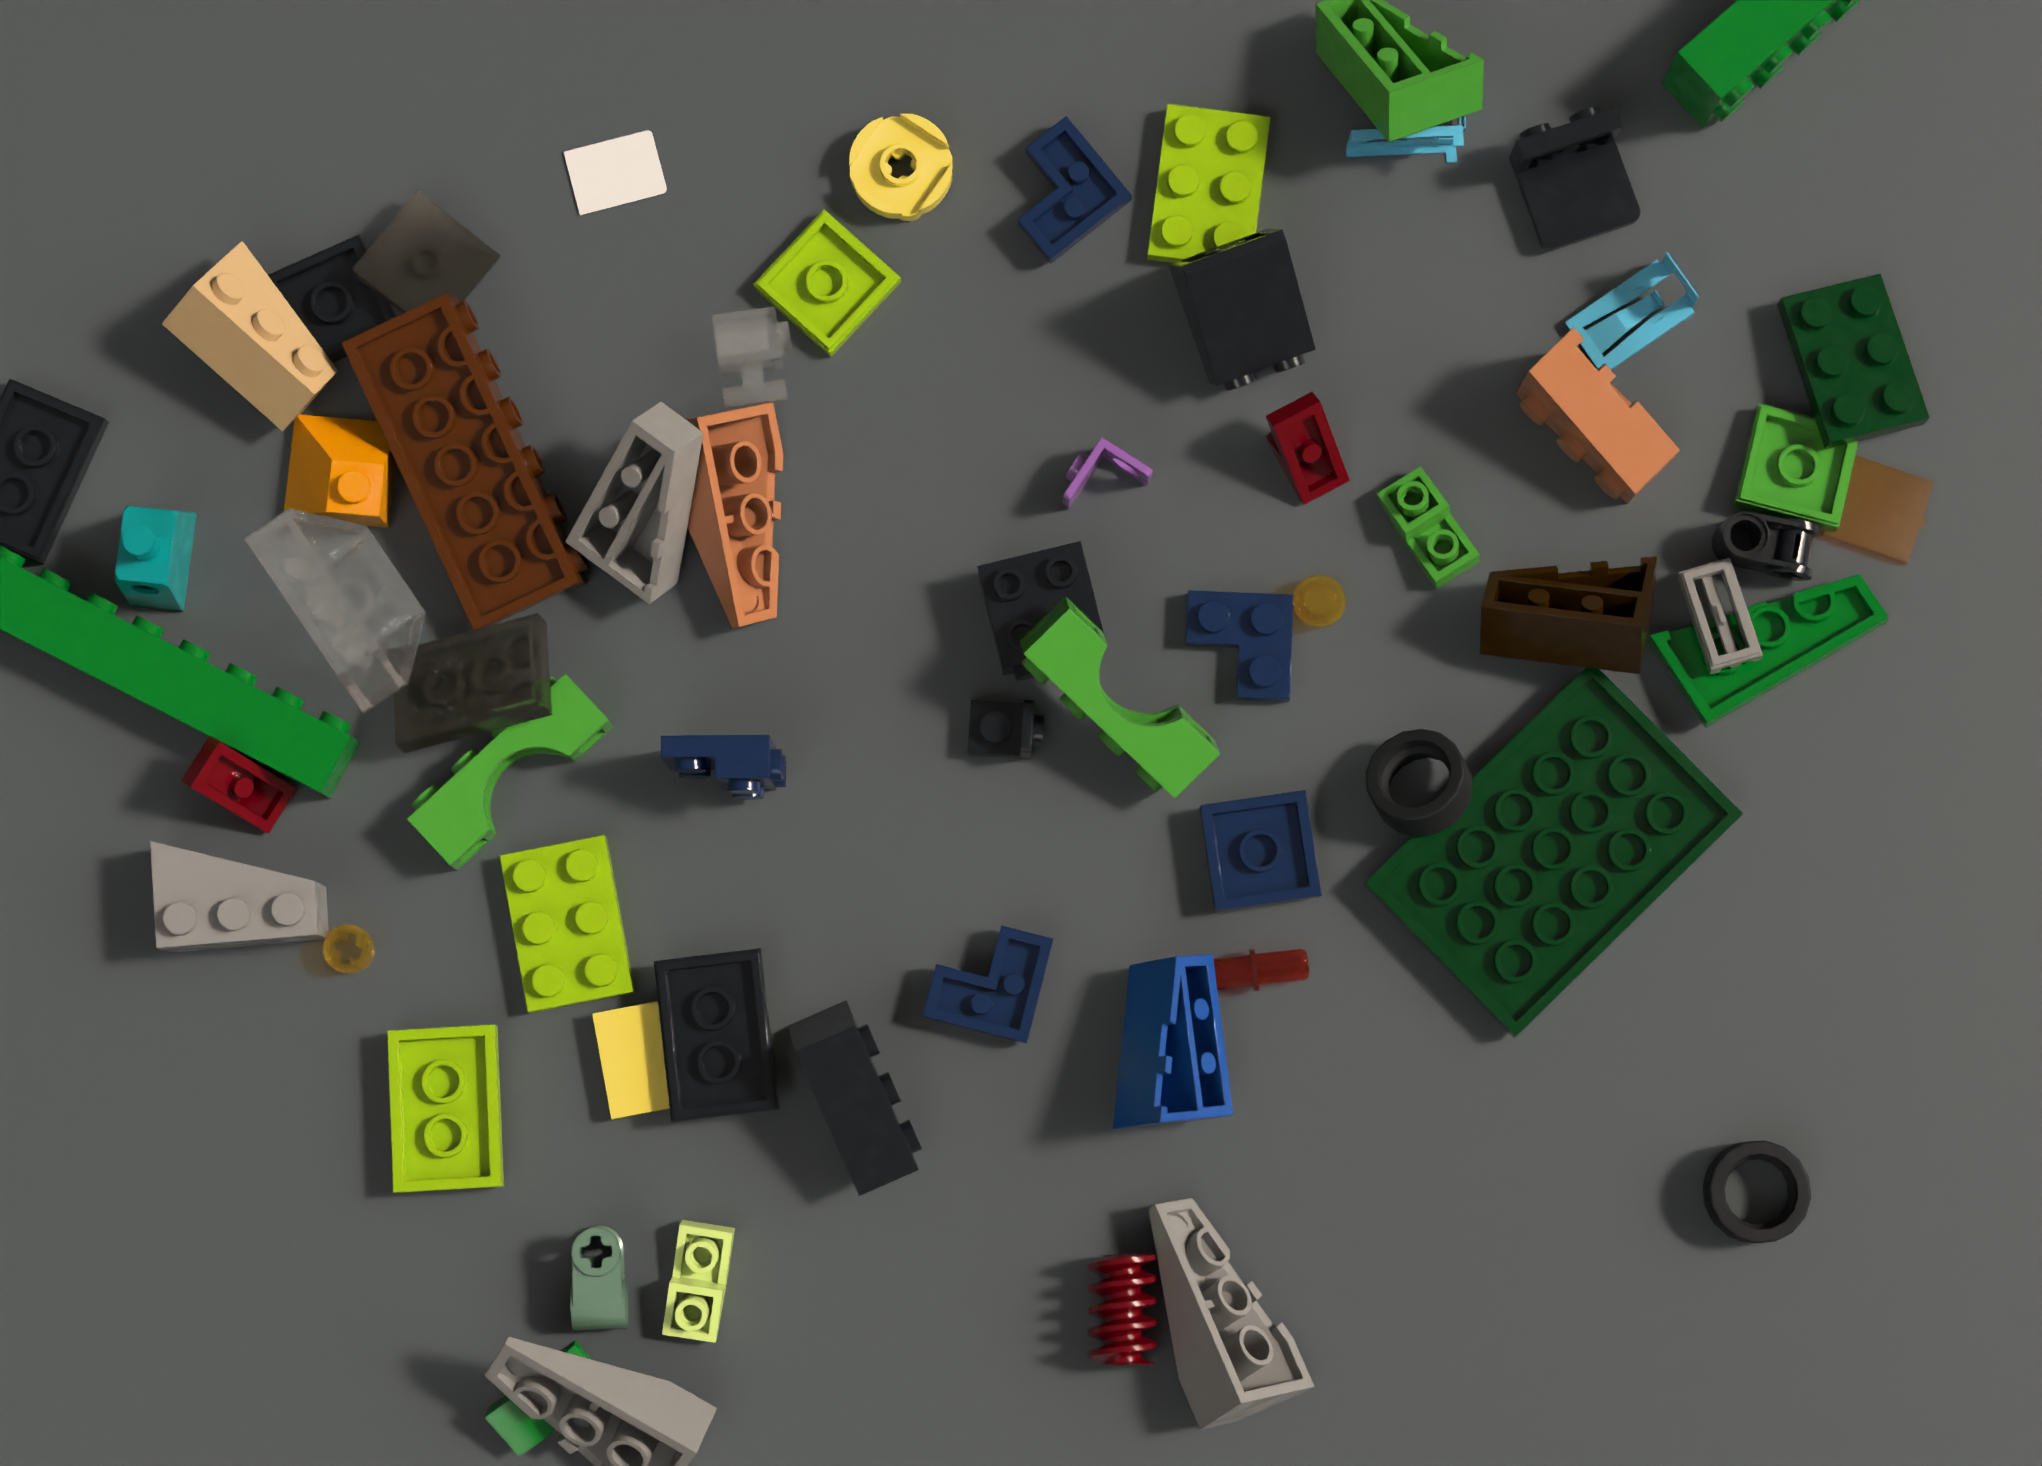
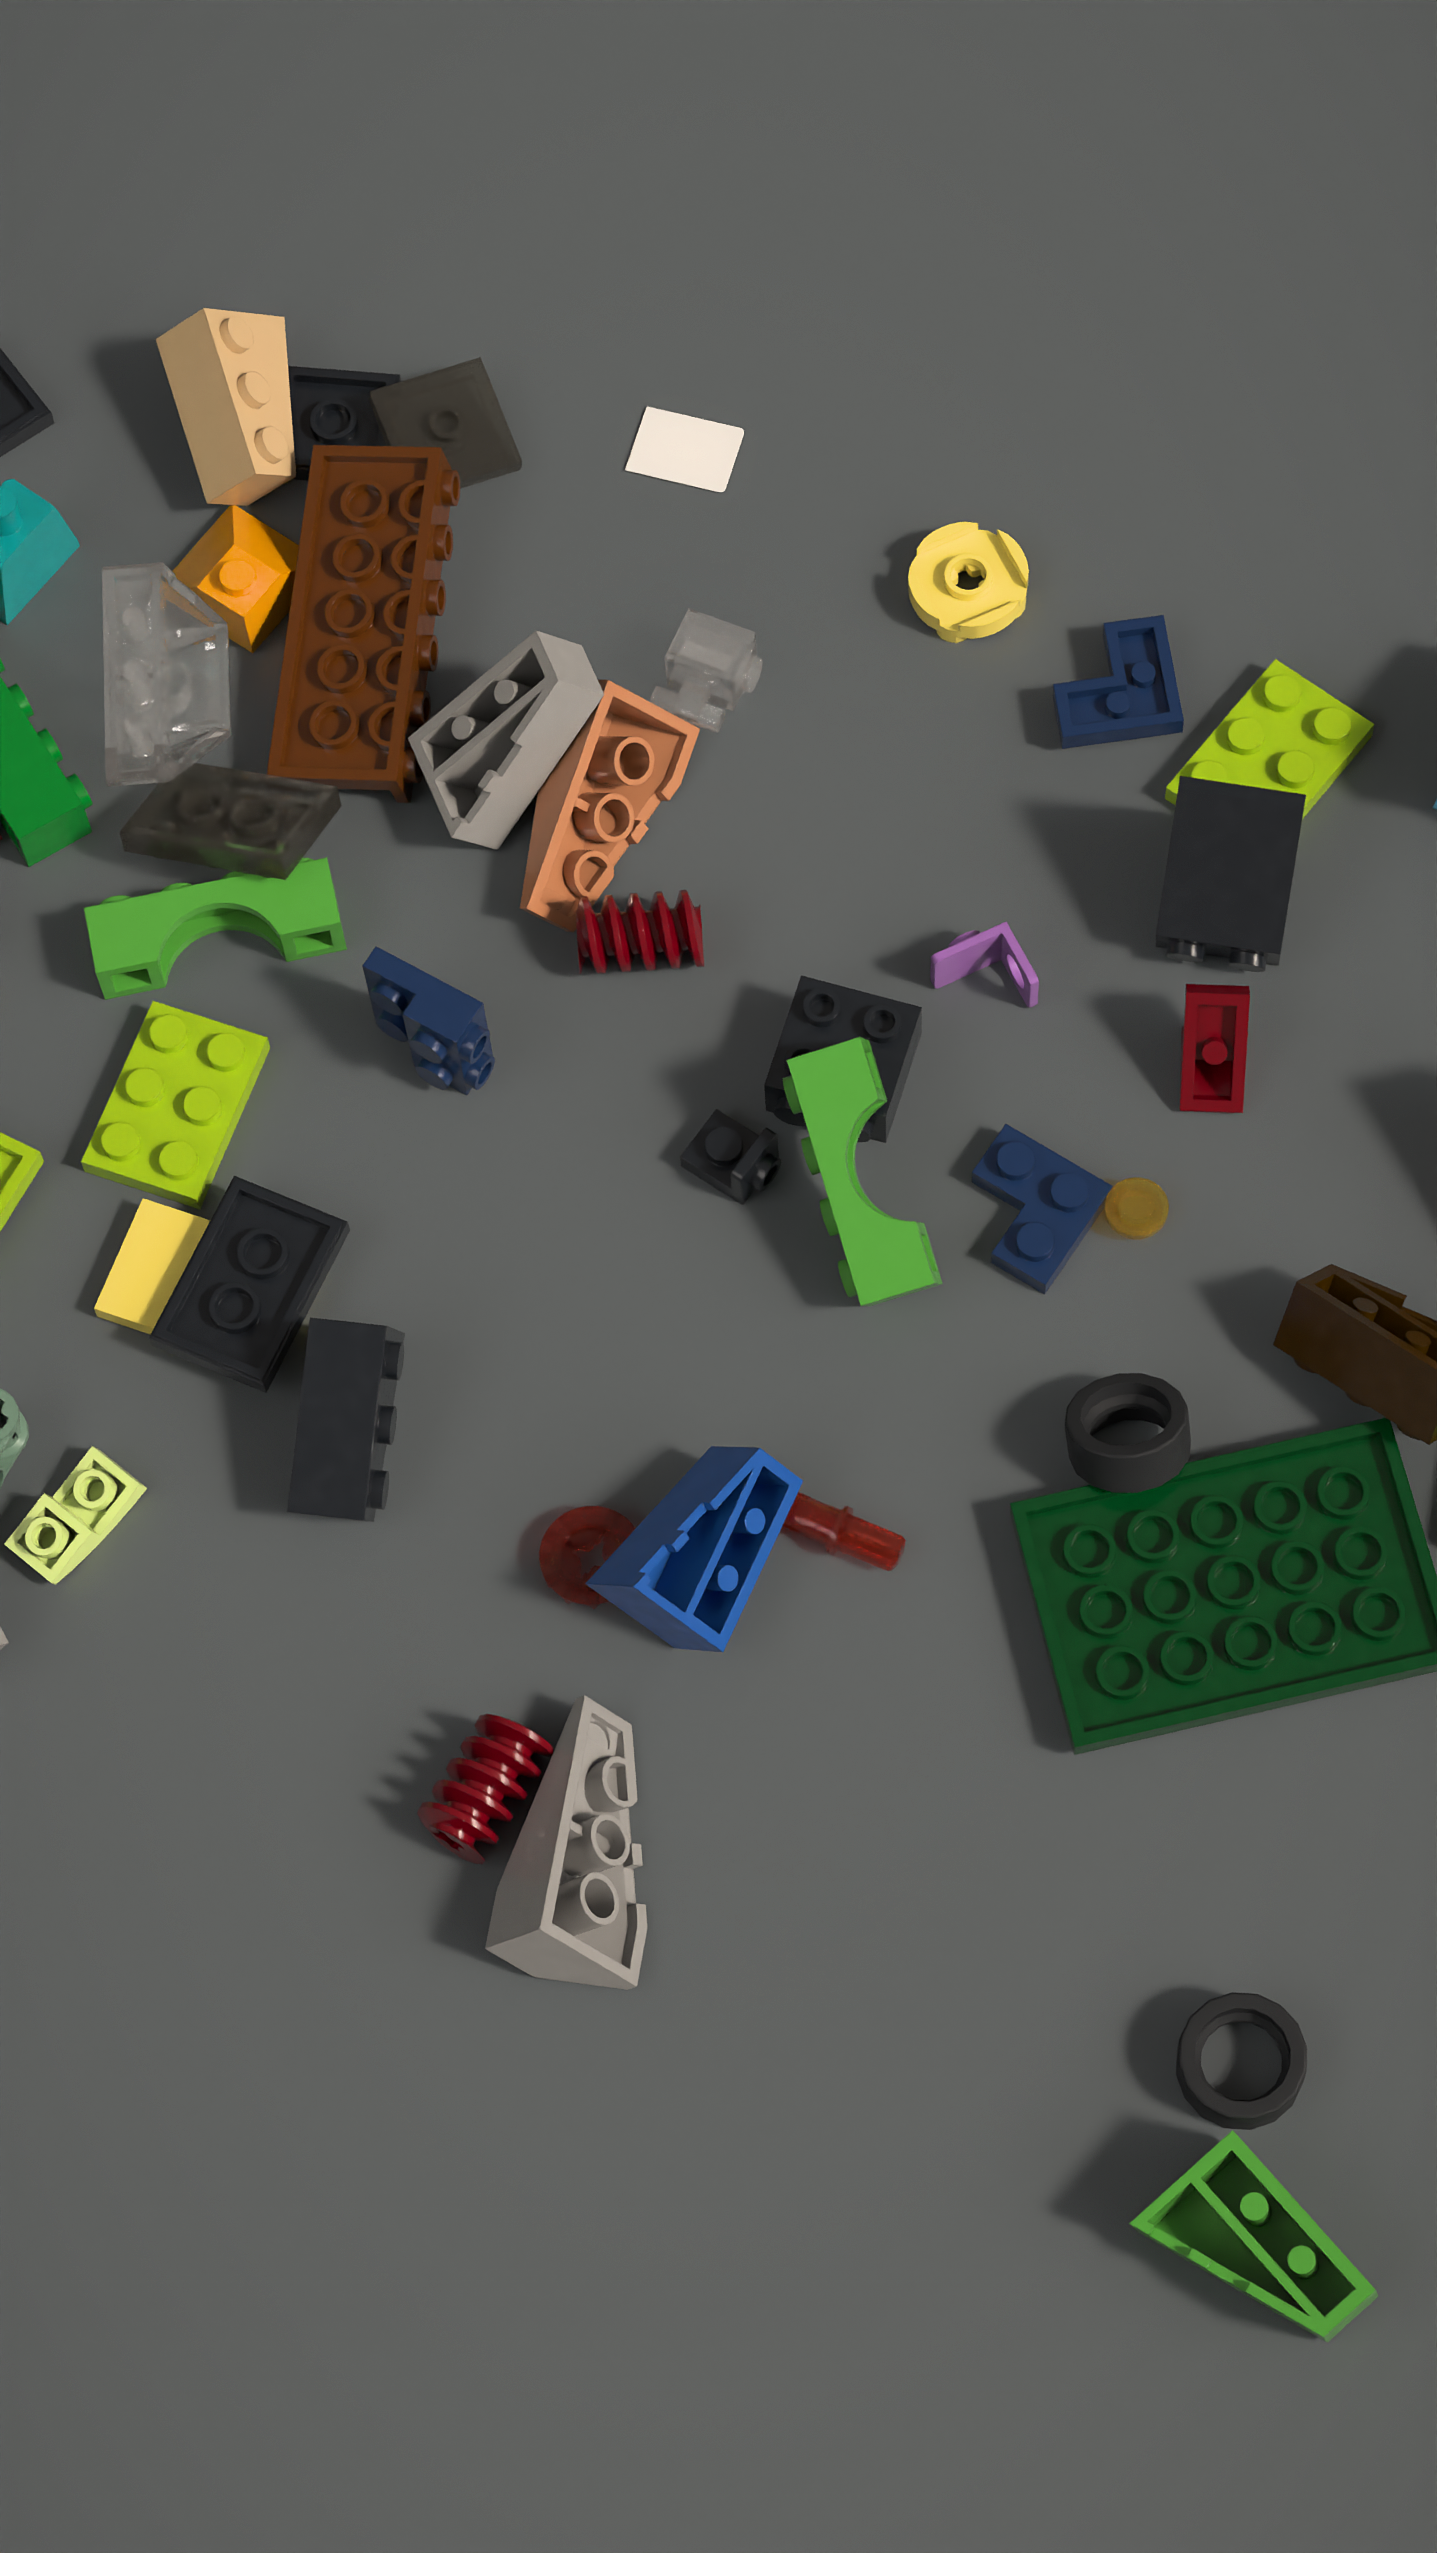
camera: 35 degrees right, 15 degrees down
(827, 283) = (826, 652): lime tile -> none
(831, 594) = (639, 932): none -> dark red piece
(1003, 1000) = (565, 1413): dark blue plate -> none
(1069, 1076) = (580, 1530): none -> clear red gear
(1260, 851) = (920, 1416): dark blue plate -> none
(1428, 527) = (1297, 1199): bright green slope -> none
(1841, 1314) = (1258, 2239): none -> bright green wedge

